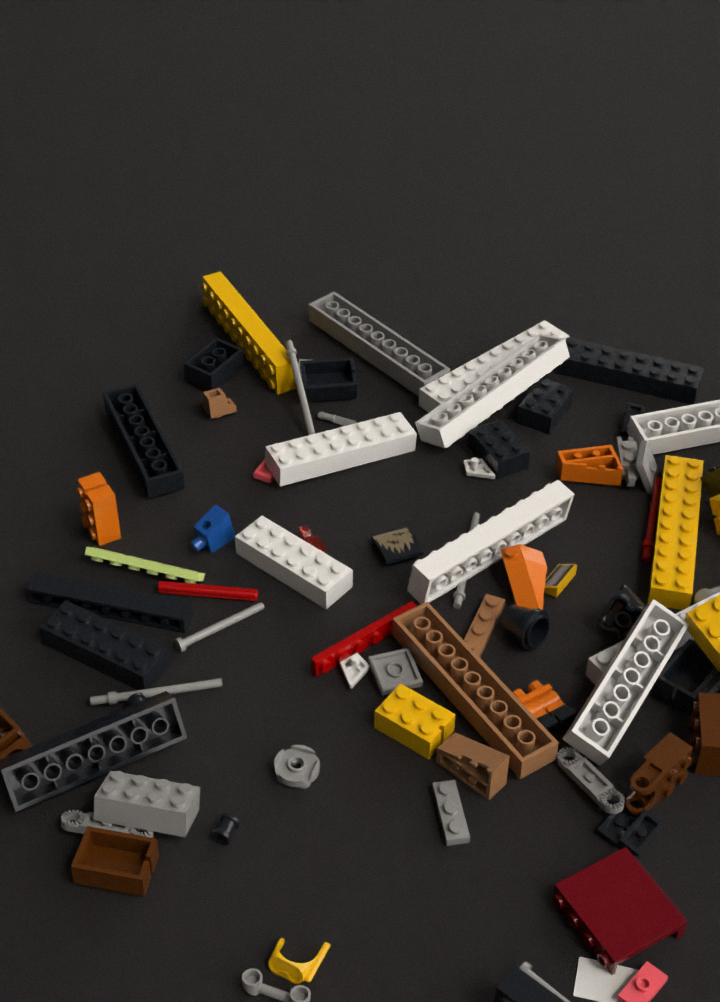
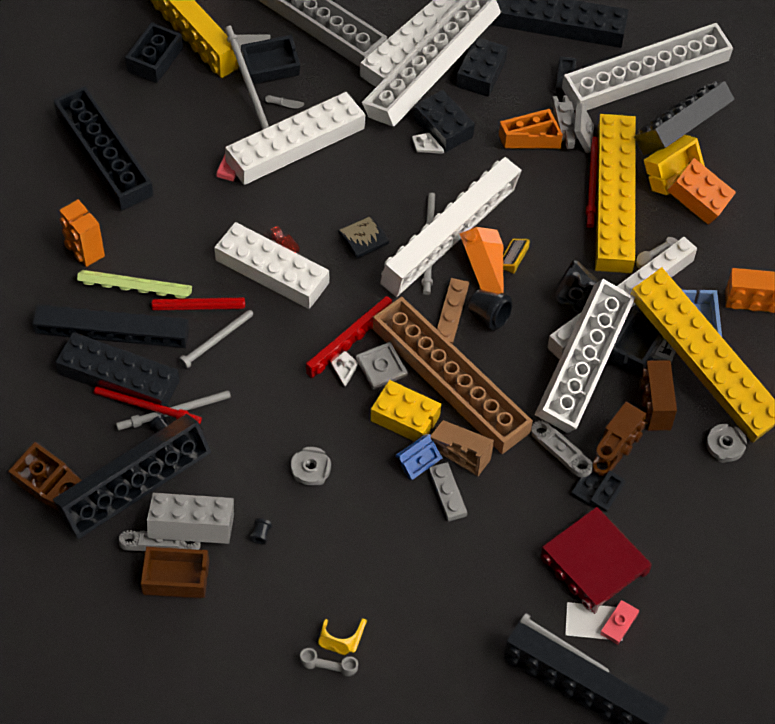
camera: 10 degrees left, 15 degrees up
(123, 680) = (144, 404): none -> red bar
(213, 530) = (191, 242): blue torso -> none
(217, 404) = (166, 98): medium nougat brick -> none
(422, 769) = (419, 456): none -> plate
(547, 707) = (517, 385): orange hips -> none

